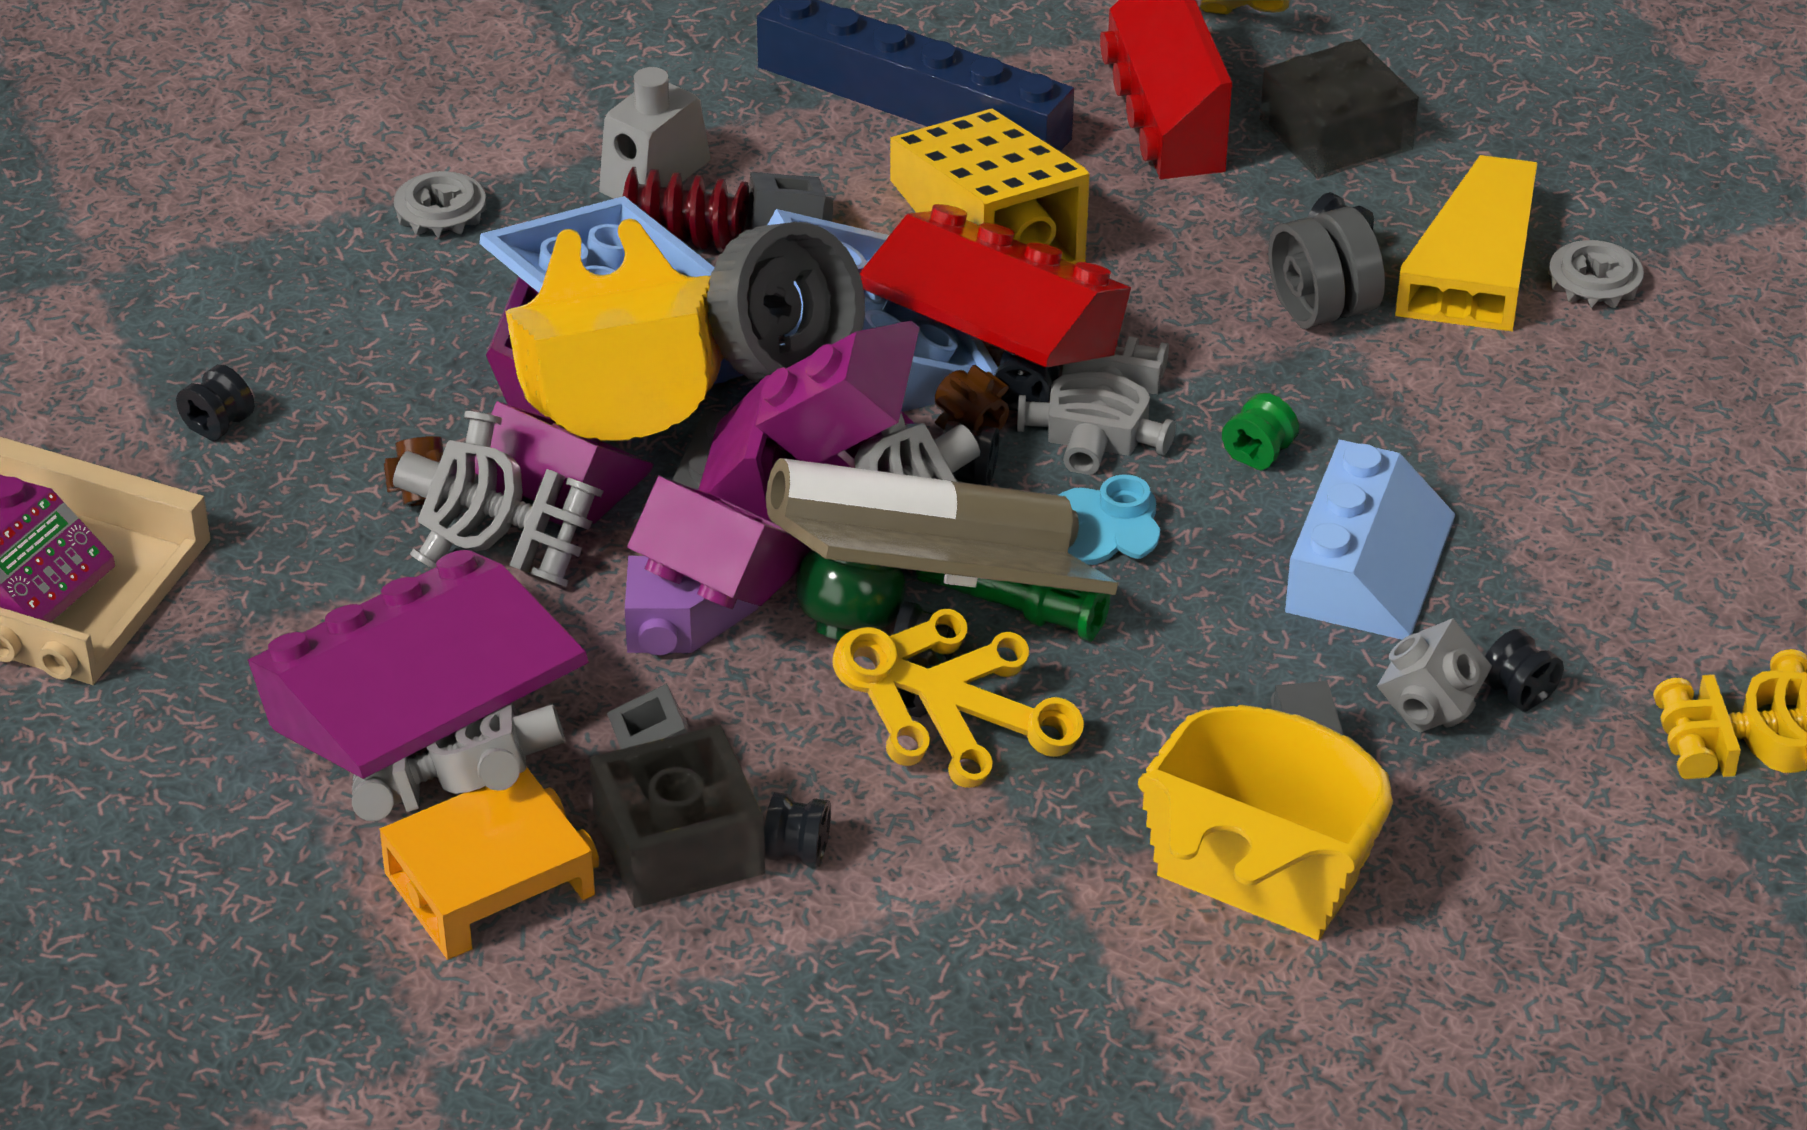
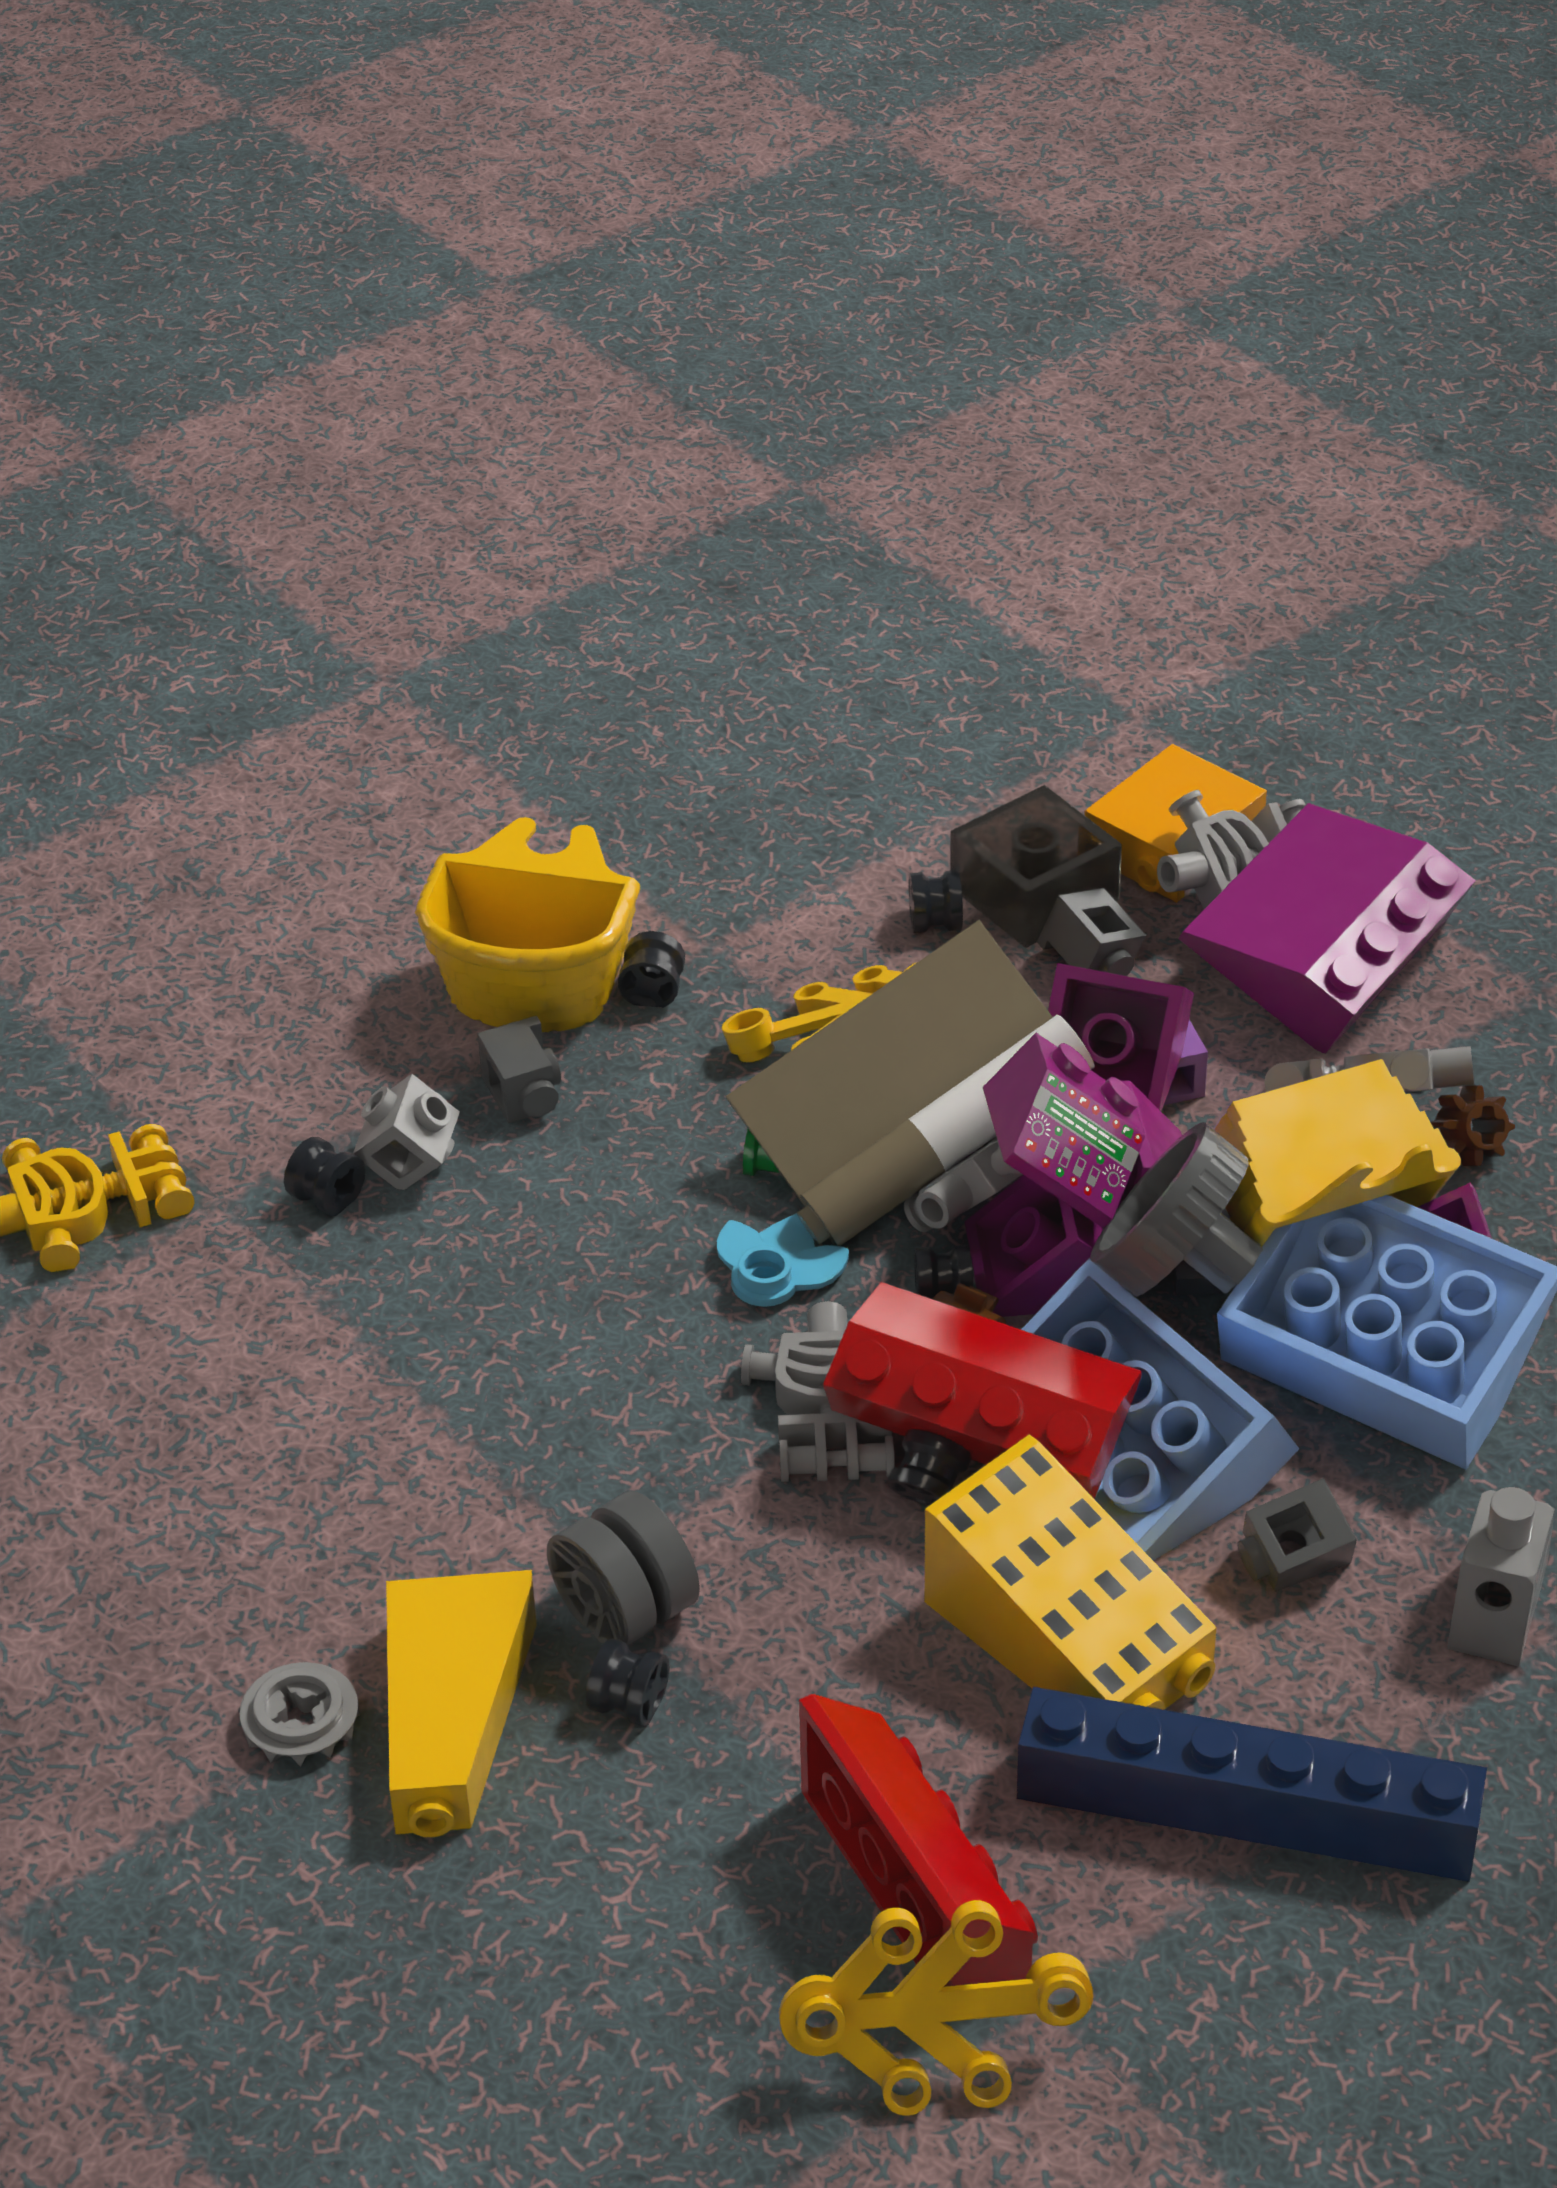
camera: 165 degrees right, 0 degrees up
(691, 211) = (1411, 1494): dark red piece -> none
(1122, 821) = (651, 969): none -> black wheel
(1260, 431) = (646, 1376): green wheel -> none
(1338, 108) = (673, 1870): clear smoke brick -> none
(1368, 543) = (501, 1273): light blue slope -> none

